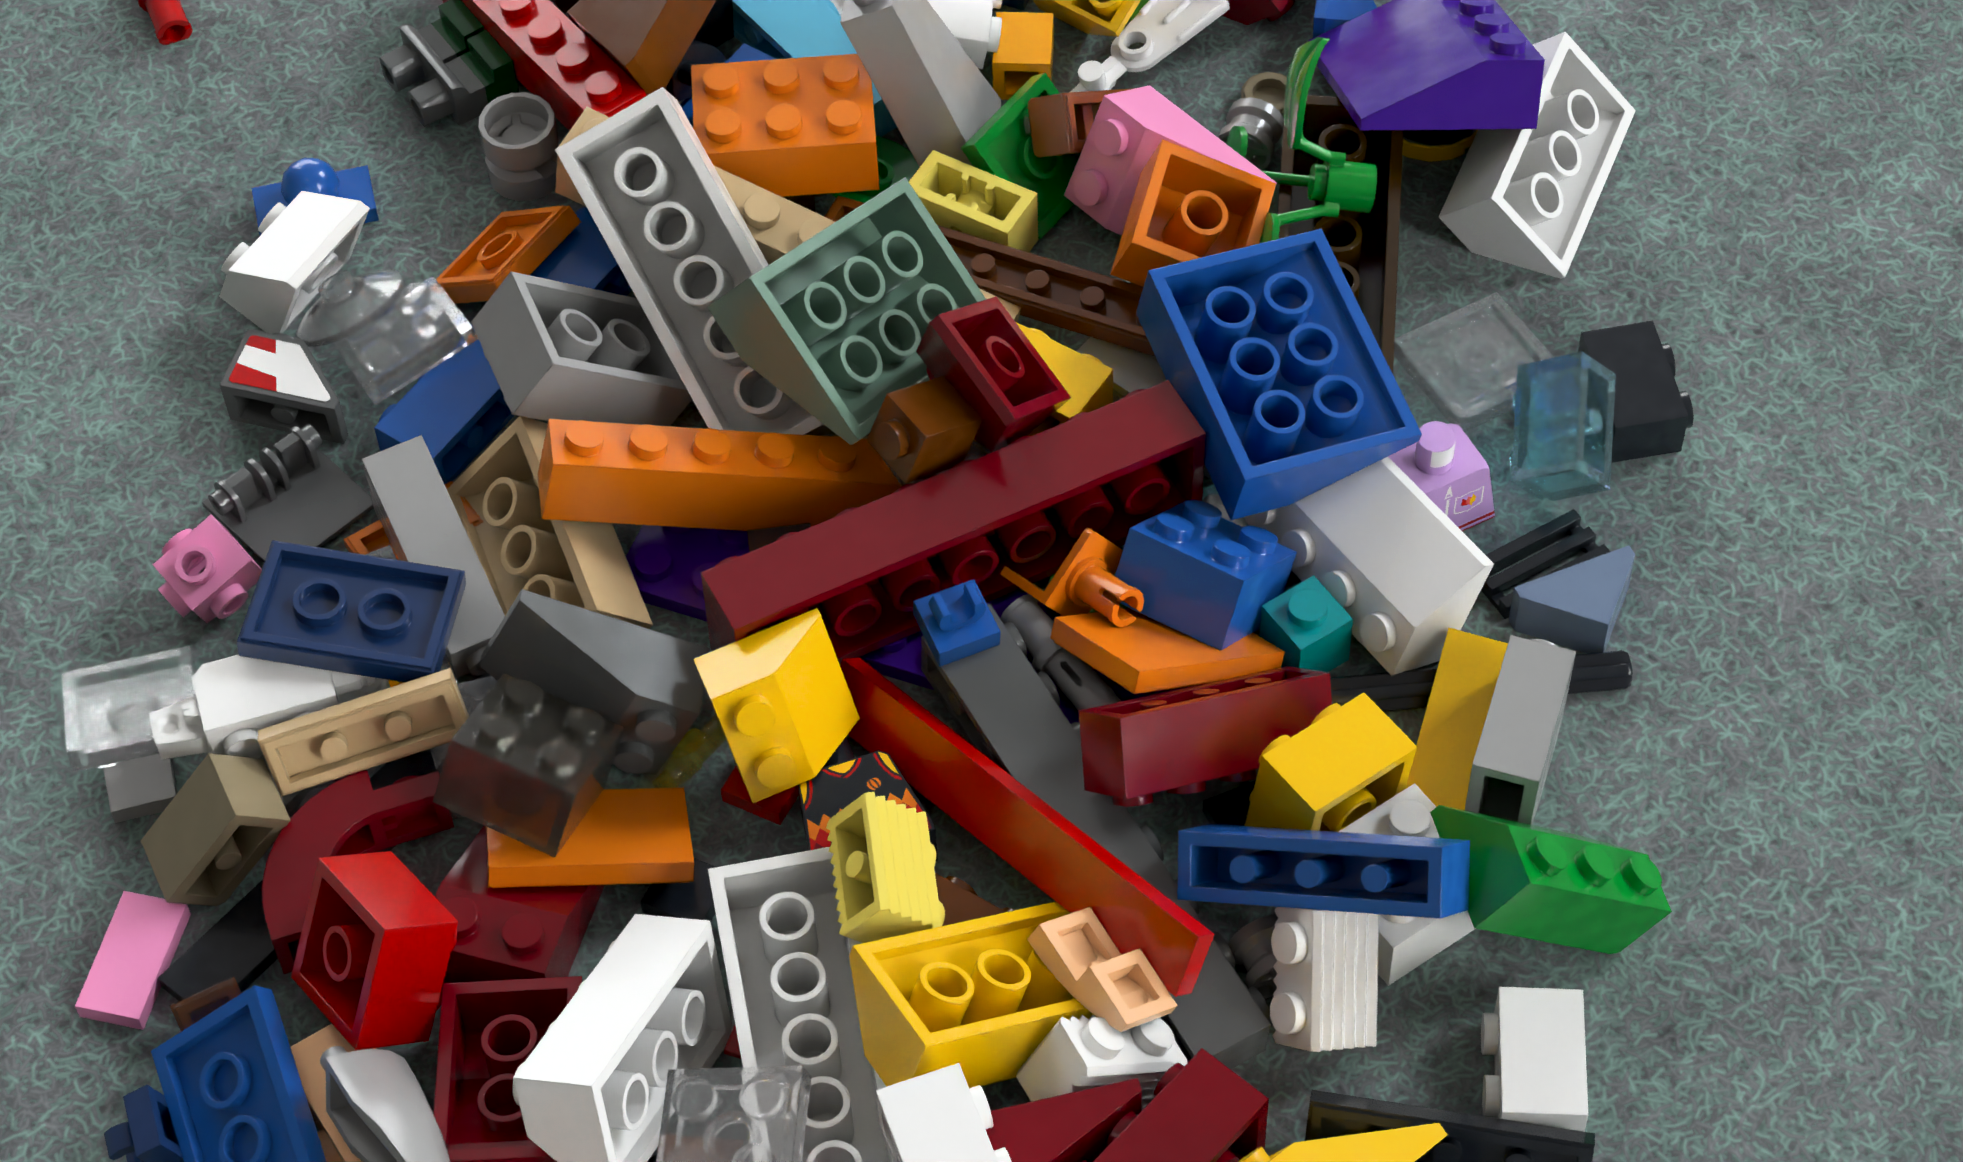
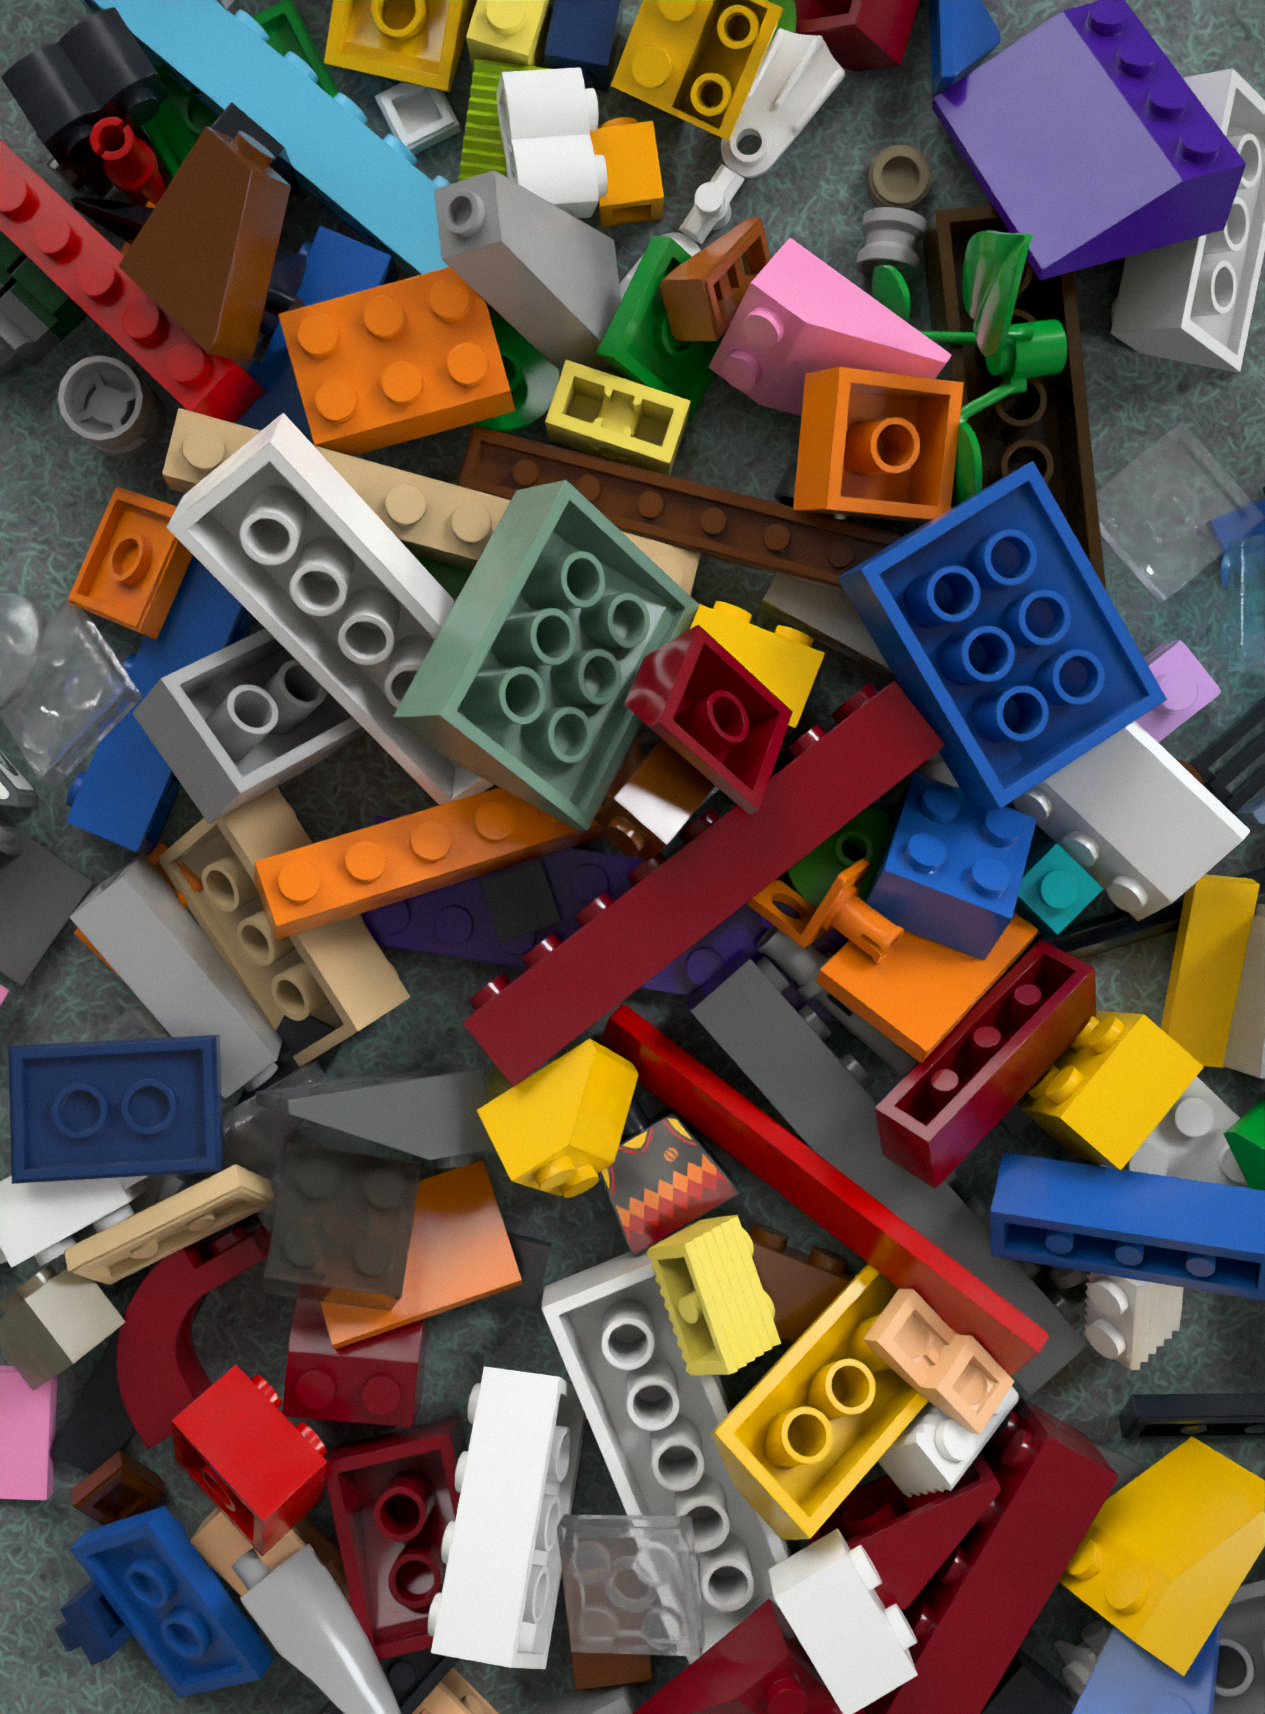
camera: 10 degrees left, 35 degrees up
(956, 623) = (724, 997): blue tile -> none

